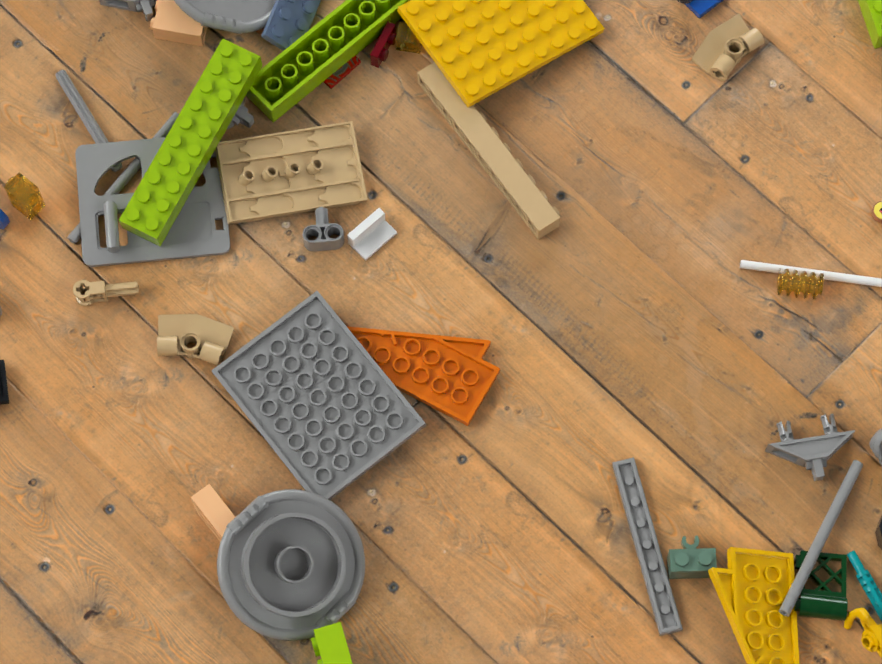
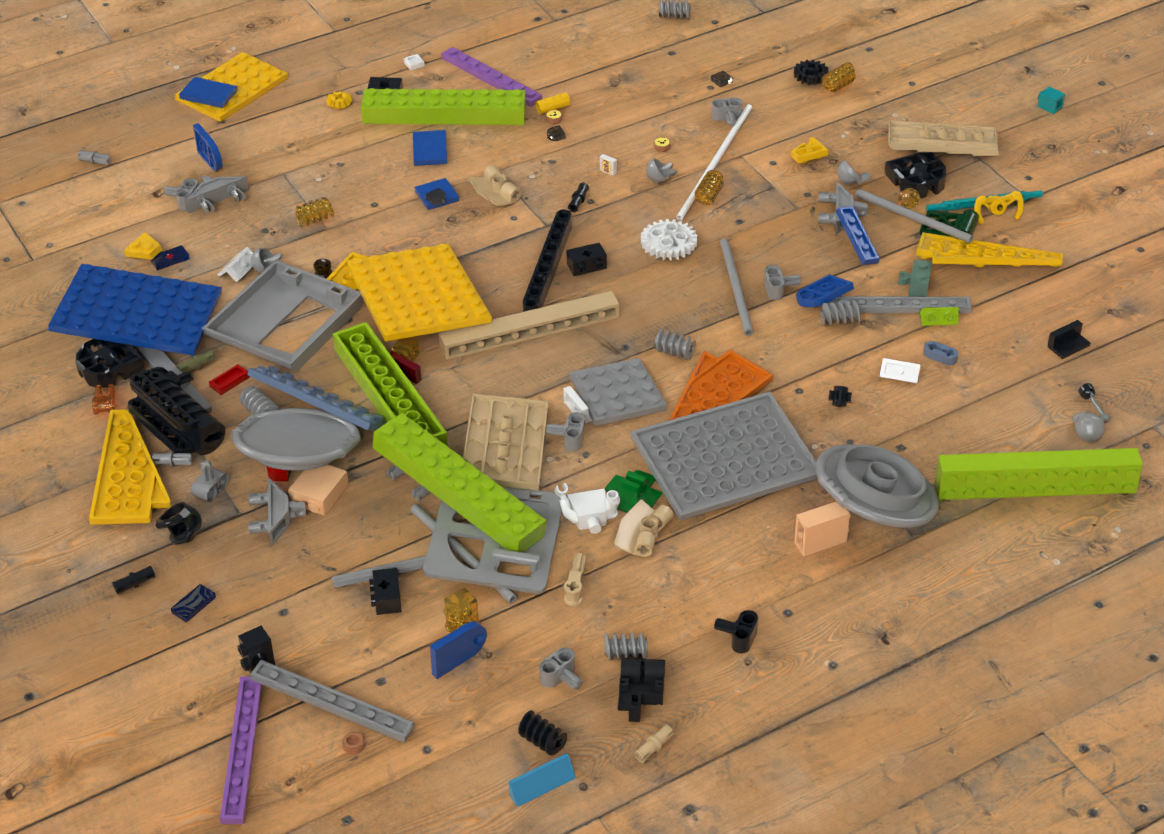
camera: 75 degrees left, 25 degrees down
(17, 359) = (625, 646): none -> light grey piece
(47, 131) = (386, 591): none -> black brick
(64, 463) = (742, 631): none -> black beam
(205, 277) = (589, 508): none -> white torso
(241, 315) = (631, 487): none -> green piece
(404, 266) = (617, 391): none -> light grey plate
(449, 503) = (840, 396): none -> black gear
(491, 307) = (674, 345): none -> light grey piece
(522, 565) = (900, 370): none -> white panel
(561, 607) = (940, 353): none -> sand blue beam
(599, 479) = (839, 311): none -> light grey piece
(609, 134) = (548, 261): none -> black beam
(625, 354) = (737, 290): none -> light grey piece
(629, 183) = (586, 259): none -> black brick
(636, 607) = (939, 316): none -> lime hinge
(639, 453) = (823, 291): none -> blue tile
(643, 399) = (776, 282): none -> light grey beam
(702, 271) = (669, 239): none -> white gear
(739, 142) = (578, 197): none -> black pin
(756, 474) = (857, 235): none -> blue tile
(812, 160) = (608, 164): none -> white tile
(817, 220) = (658, 171): none -> light grey piece
(857, 525) = (909, 198): none -> clear yellow animal
(864, 87) = (556, 133): none -> clear smoke tile

